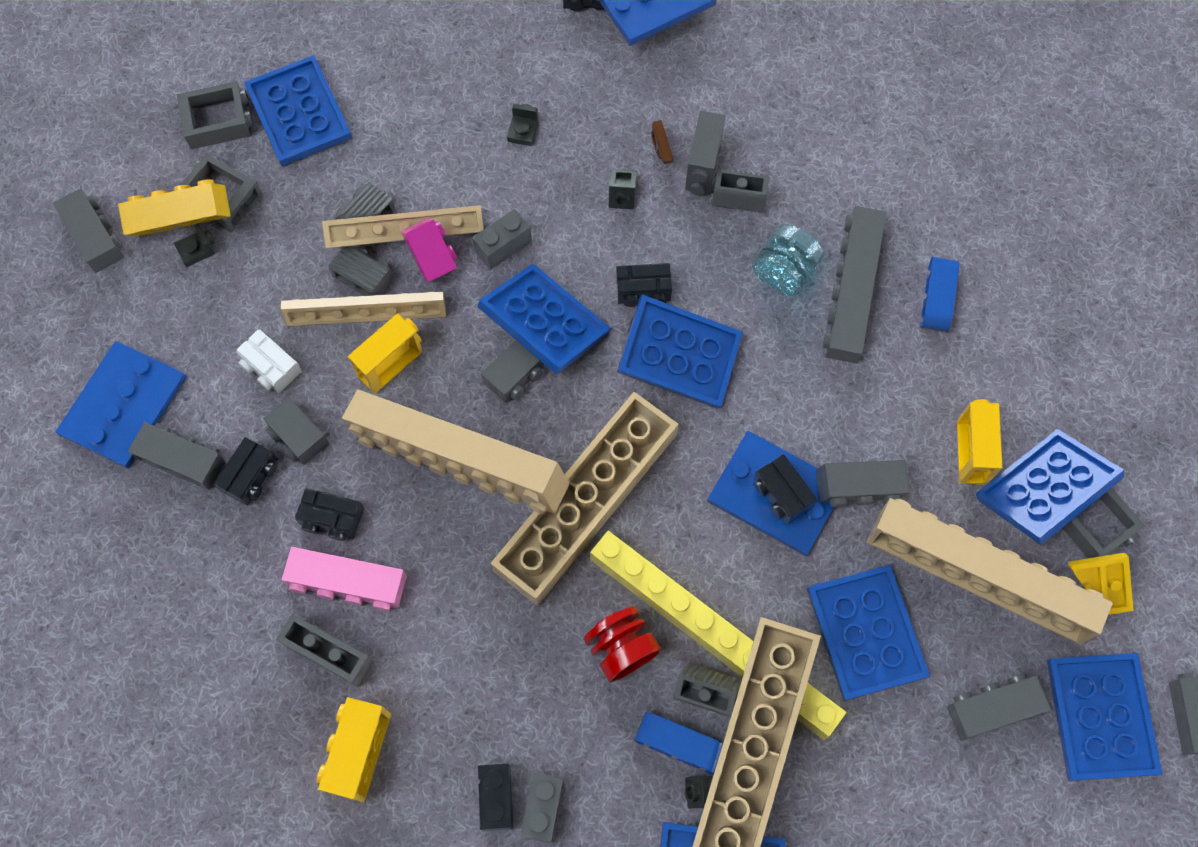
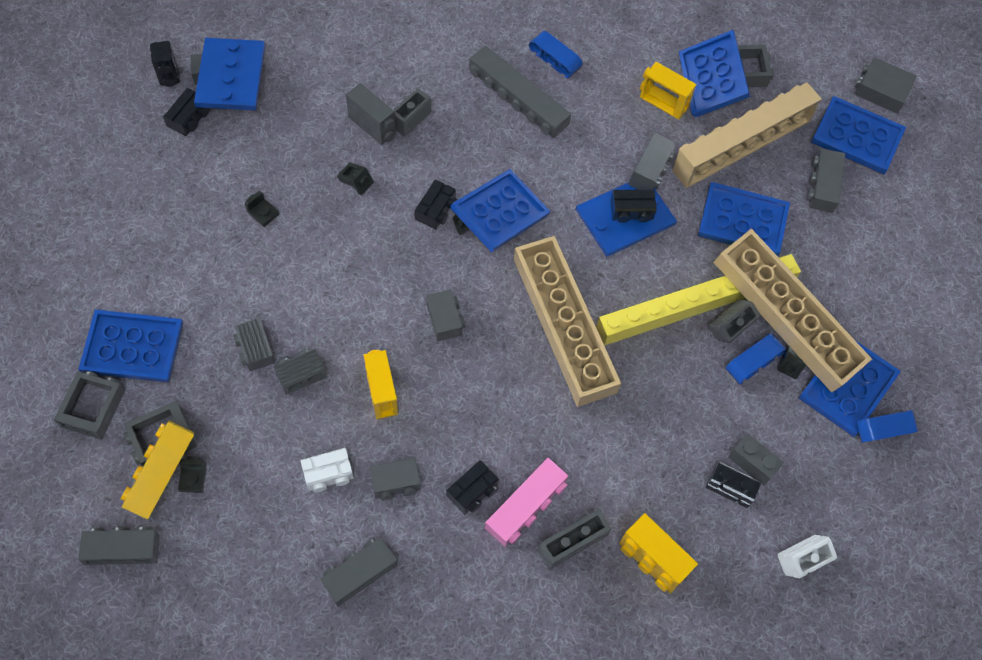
camera: 65 degrees left, 5 degrees down
(117, 402) = (285, 595): blue plate -> none
(247, 471) = (403, 528): black brick -> none
(363, 308) = (330, 385): tan plate -> none
(389, 227) = (288, 324): tan plate -> none
(429, 249) = (319, 315): dark pink brick -> none
(456, 452) = (489, 374): tan brick -> none
(502, 239) = (342, 268): dark grey brick -> none
(544, 318) = (420, 274): blue plate -> none
(619, 639) = (682, 352): red wheel -> none
(660, 142) = (340, 136): reddish brown tile -> none
(788, 259) = (480, 114): clear light blue wheel -> none
(1108, 576) = (783, 80): yellow wing -> none

